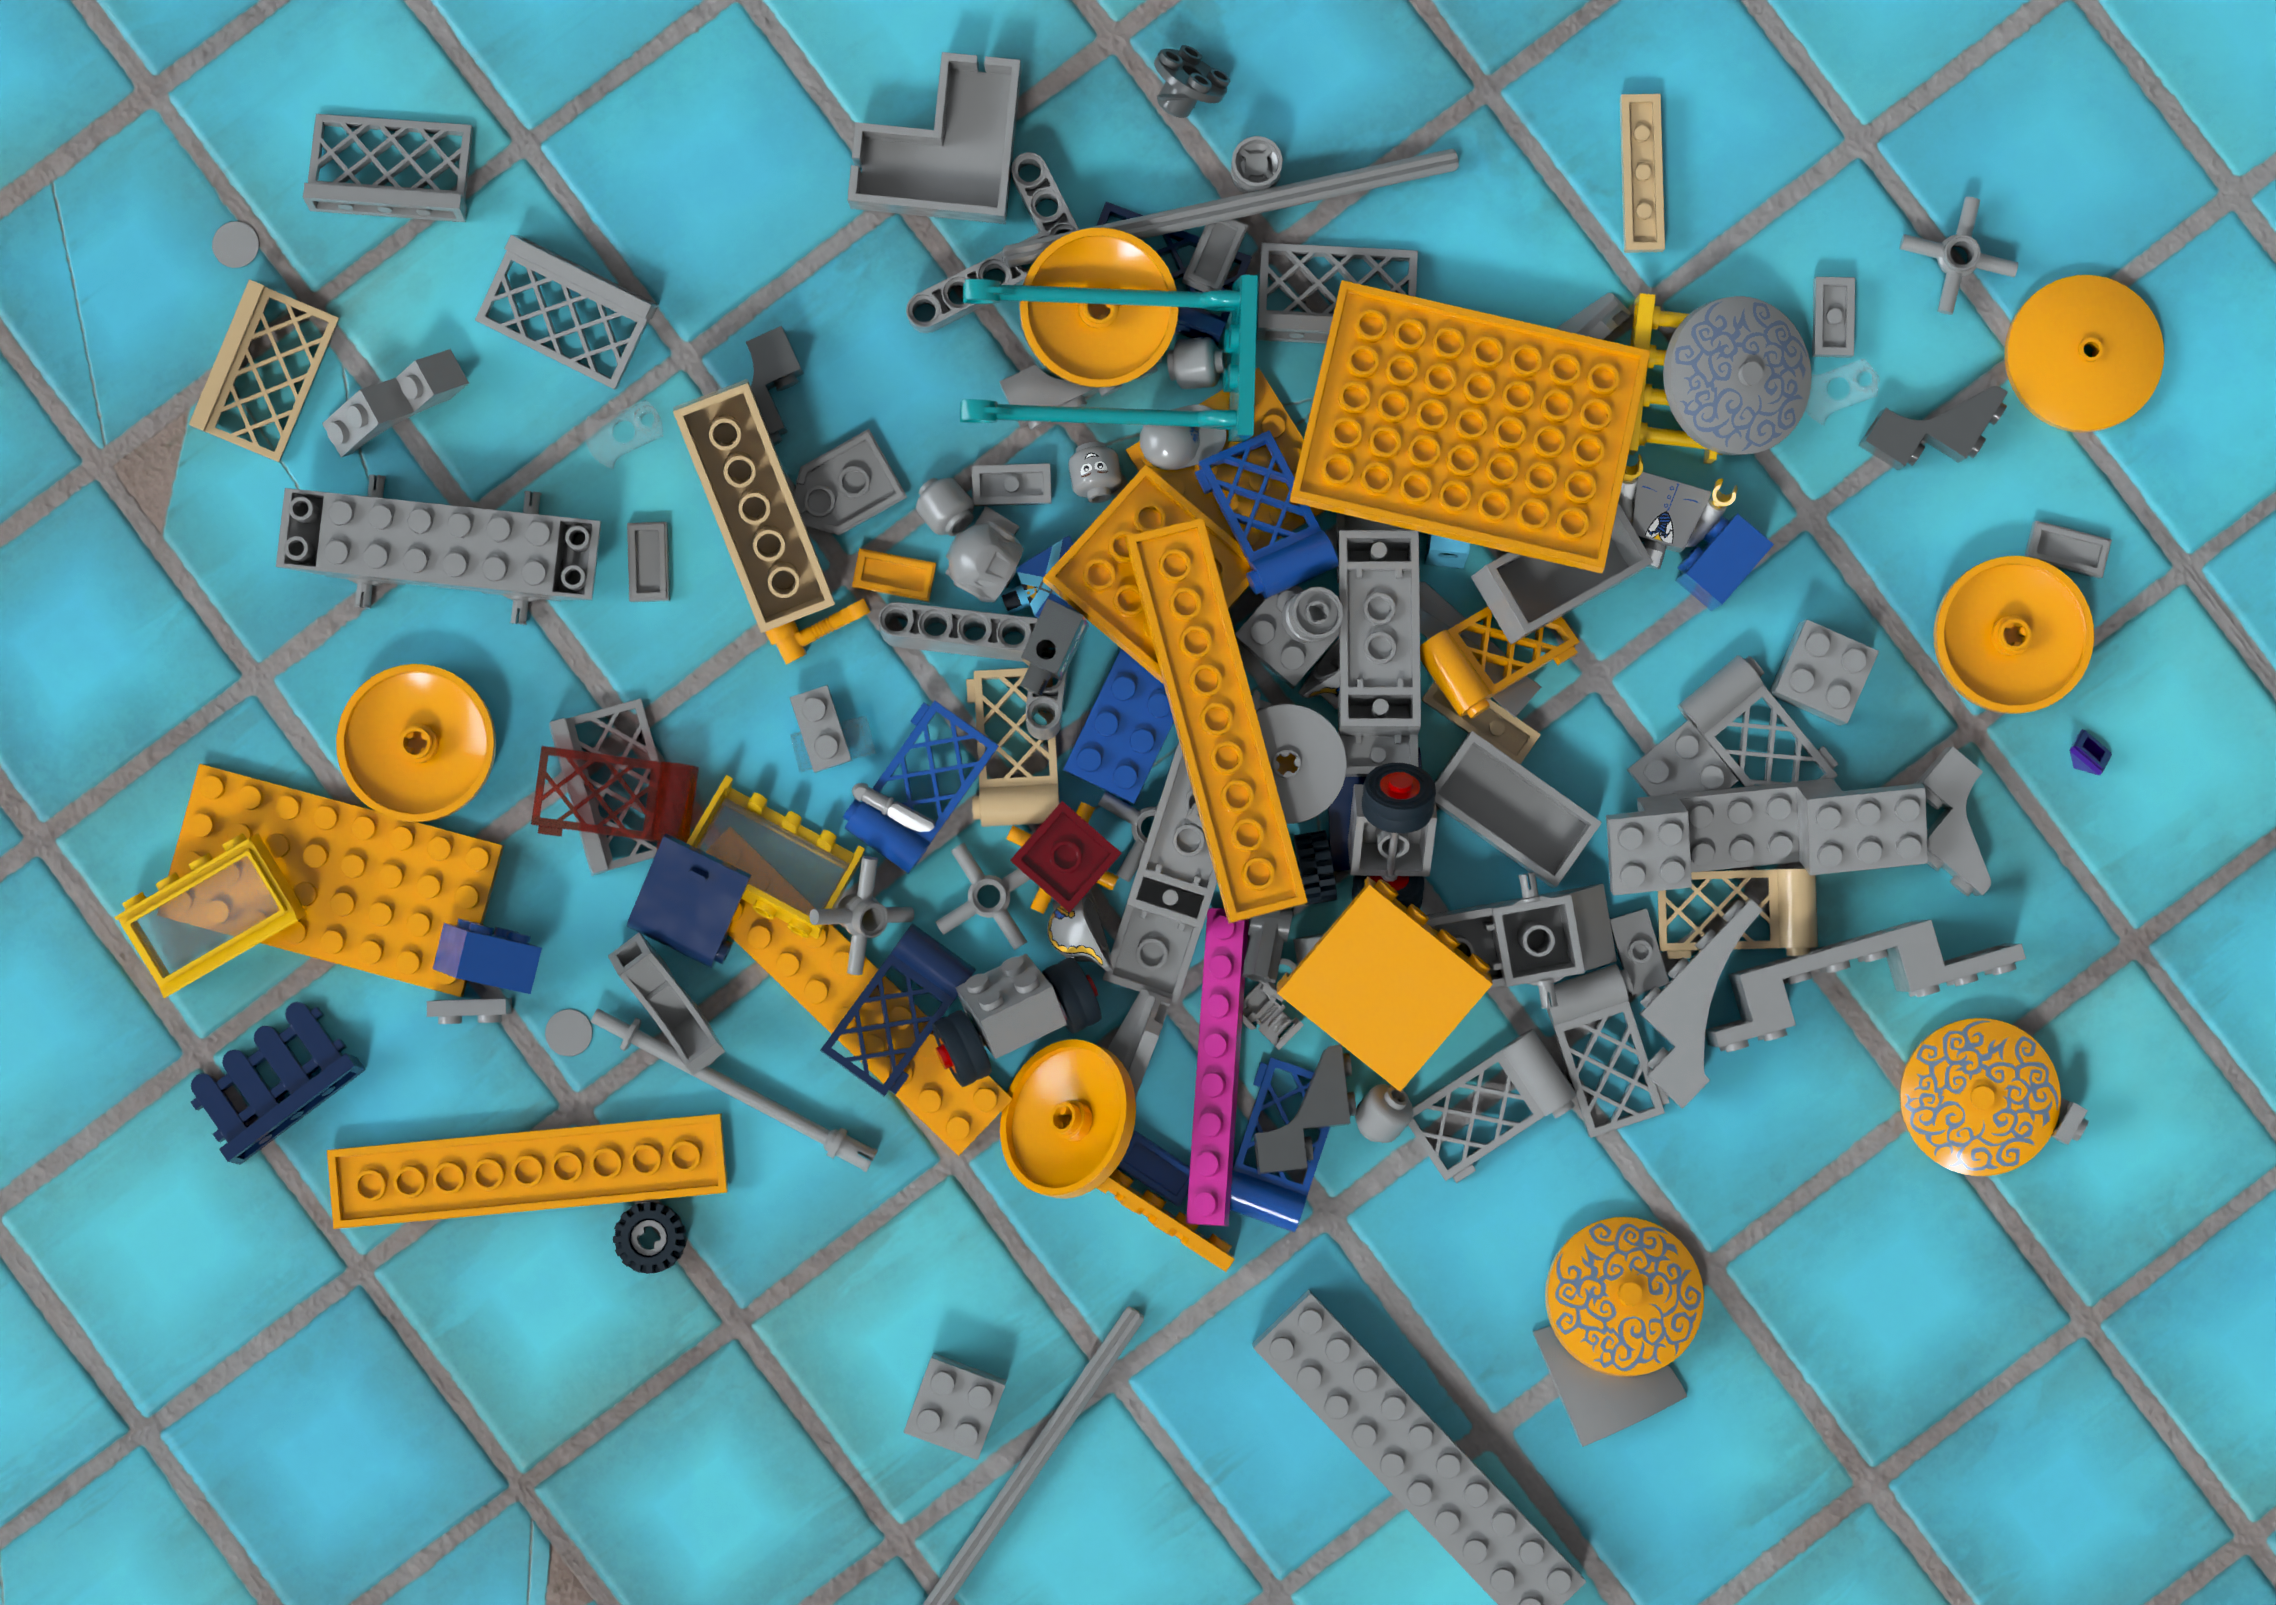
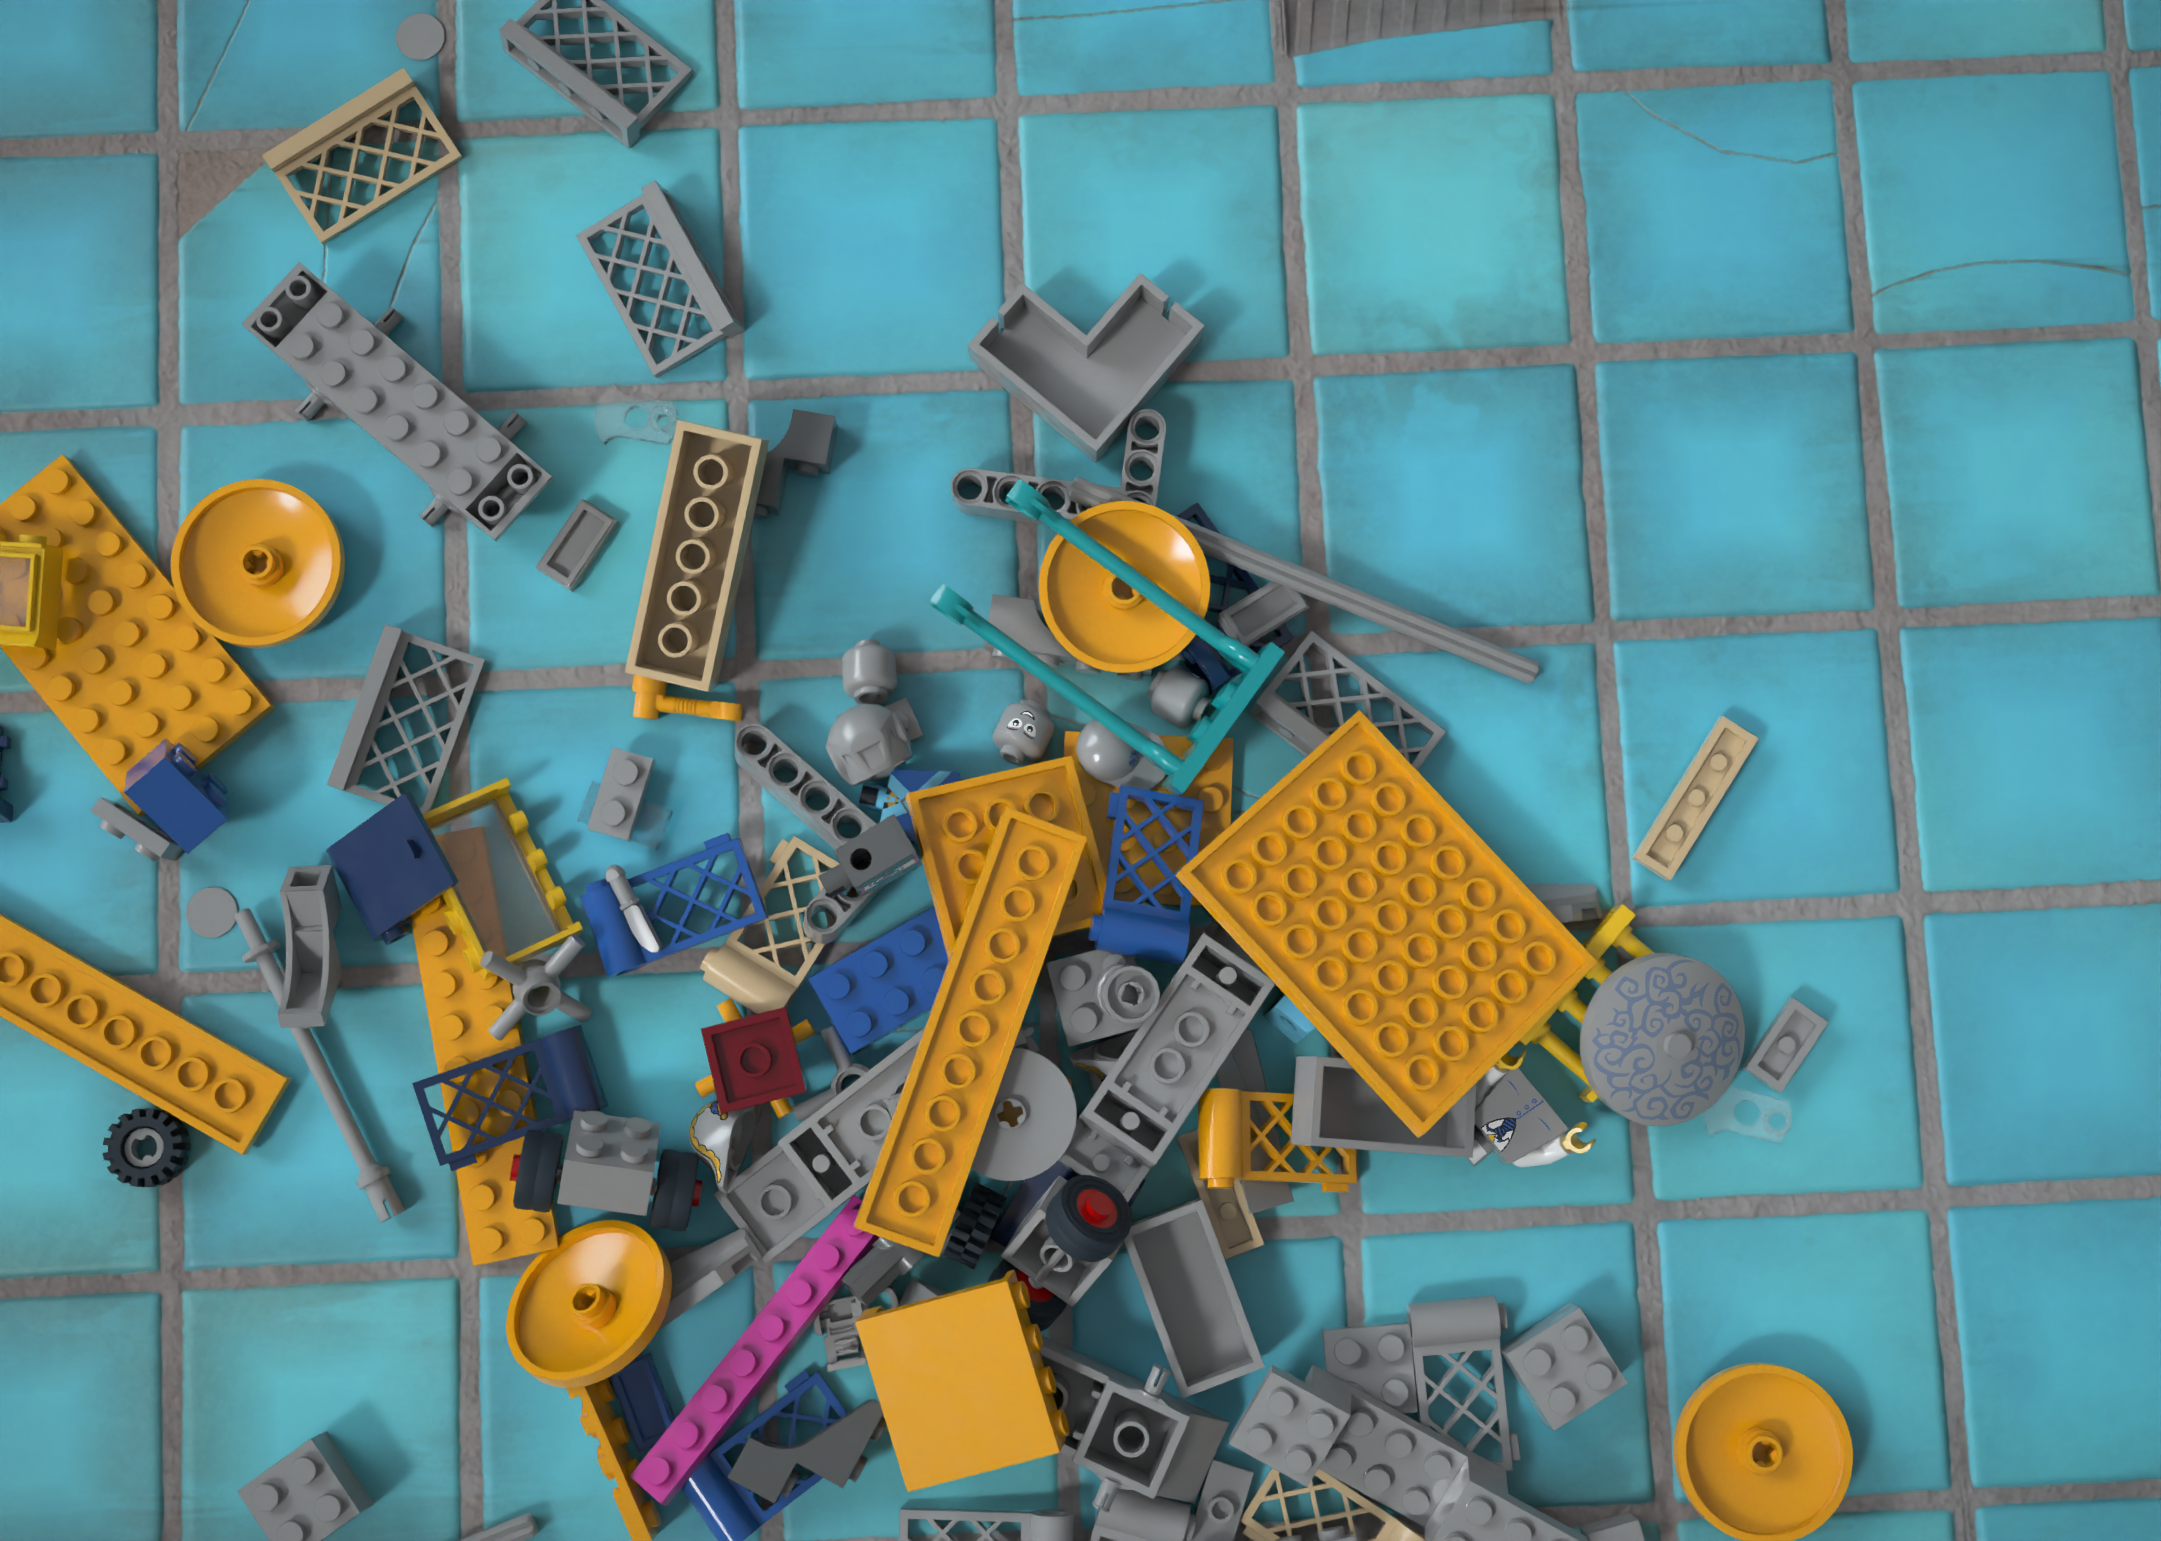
camera: 30 degrees right, 5 degrees down
(385, 404) = (441, 252): light grey arch -> none
(667, 806) = (436, 770): clear red piece -> none
(846, 486) = (796, 596): light grey tile -> none
(894, 575) = (783, 703): light orange tile -> none
(973, 905) = (646, 1047): light grey bar -> none
(1011, 484) = (942, 693): light grey plate -> none
(1187, 81) = (1341, 445): dark grey plate -> none
(1256, 164) = (1352, 557): light grey wheel -> none
(1383, 1113) = (881, 1498): light grey head -> none
(1724, 562) = (1537, 1201): blue brick -> none
(1953, 432) = (1827, 1225): dark grey arch -> none
(1964, 240) = (1952, 1072): light grey bar -> none
(2049, 360) = (1957, 1228): light orange dish -> none
(2068, 549) = (1864, 1405): light grey tile -> none

